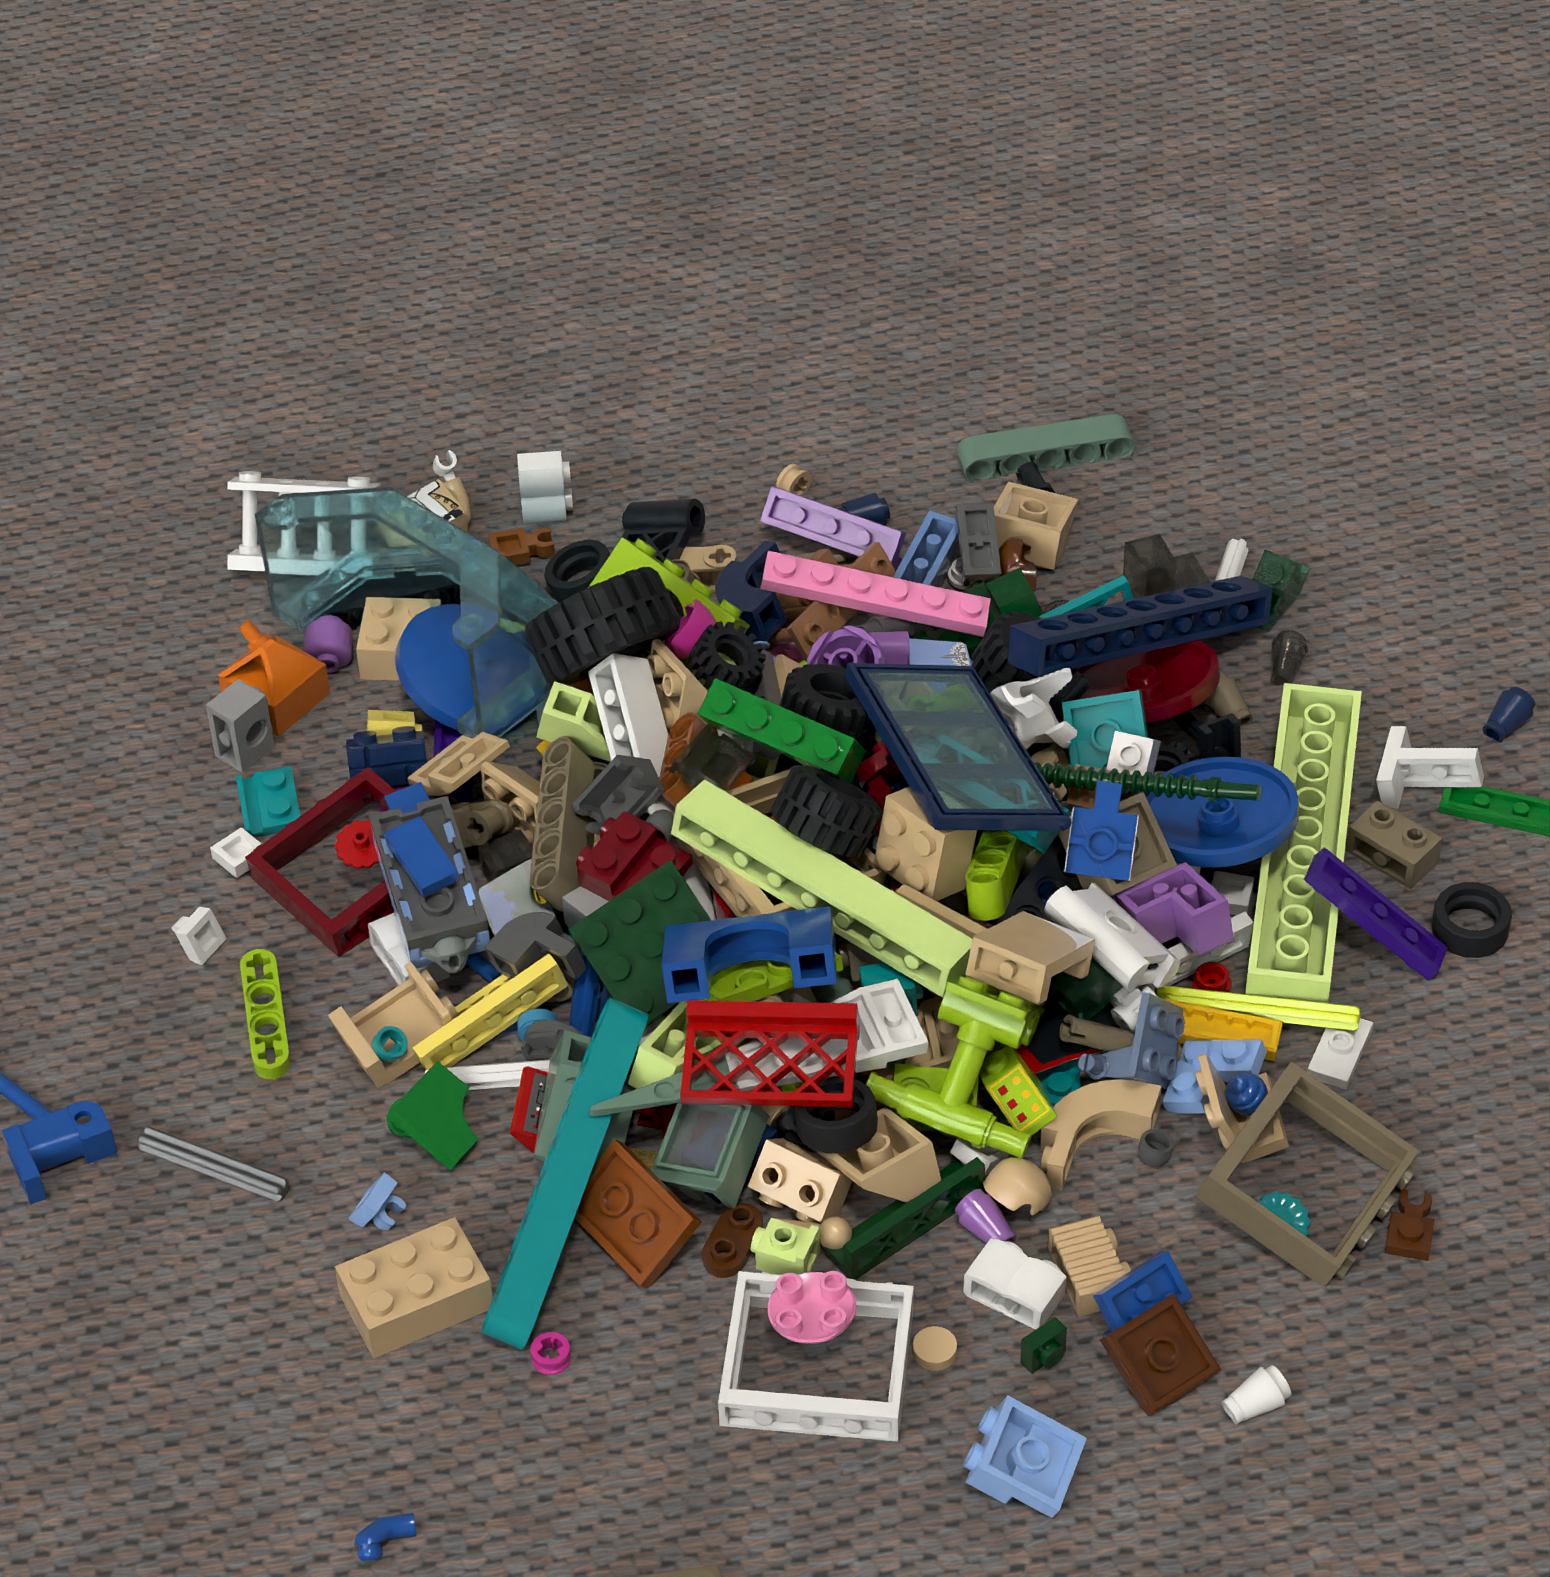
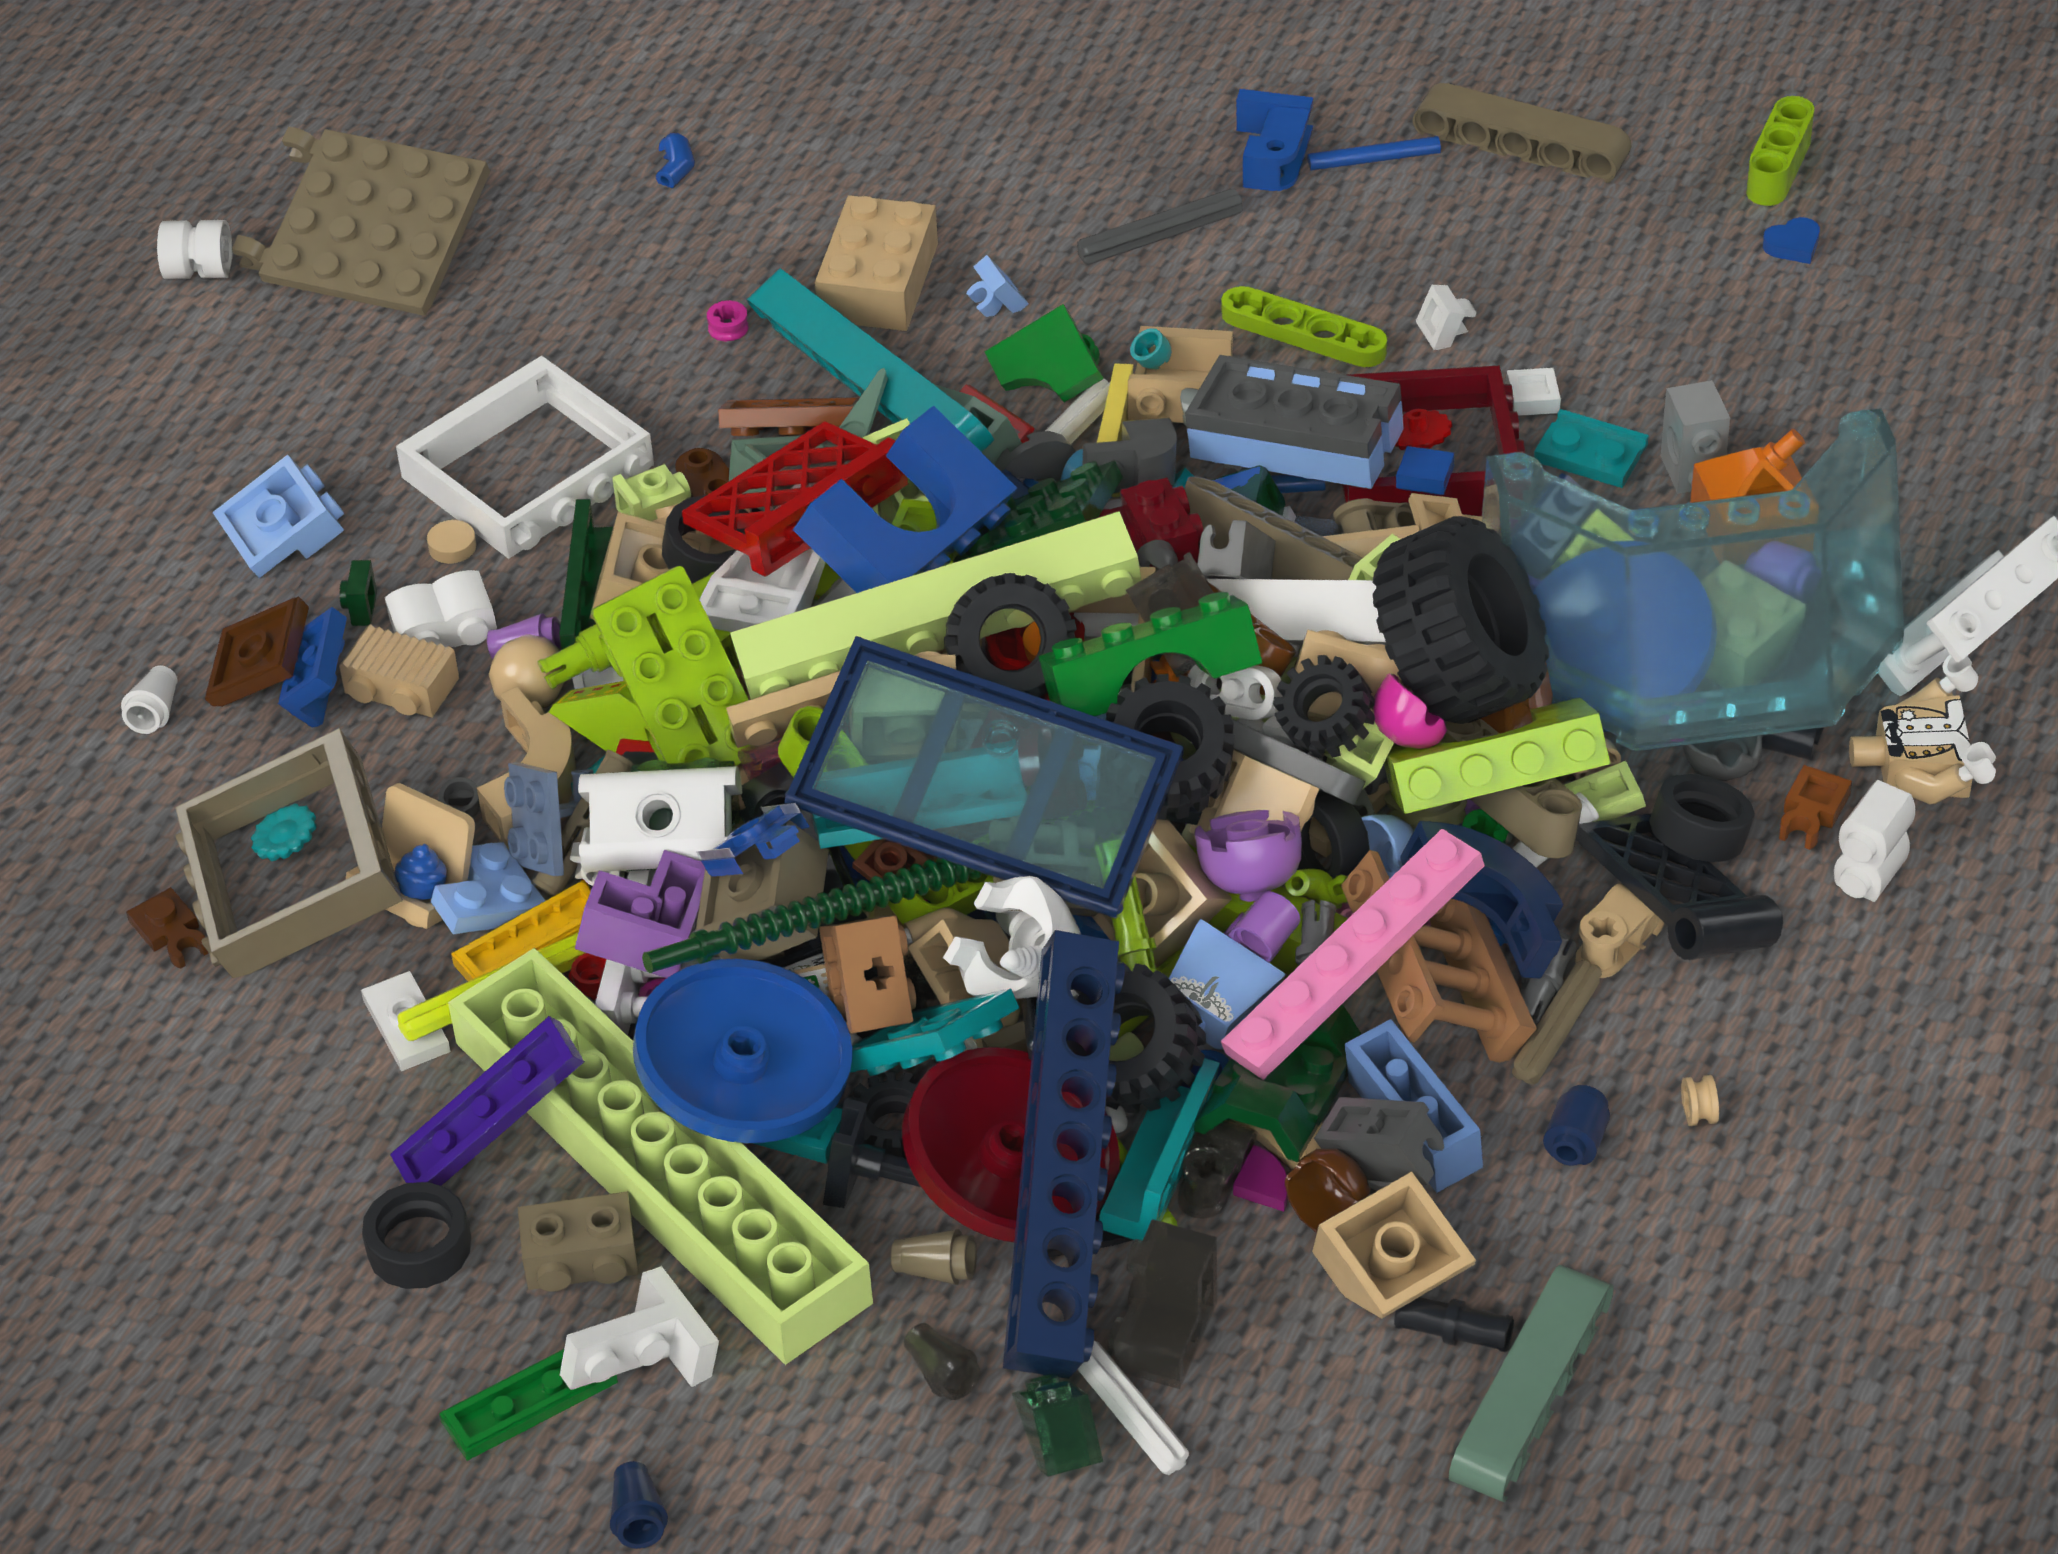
camera: 130 degrees right, 0 degrees up
(421, 856) = (1301, 389): blue tile -> none
(811, 1306) = (553, 444): bright pink dish -> none
(830, 525) = (1559, 1051): fence -> none
(1026, 953) = (676, 694): tan panel -> none
(1133, 753) = (899, 1013): white brick -> none

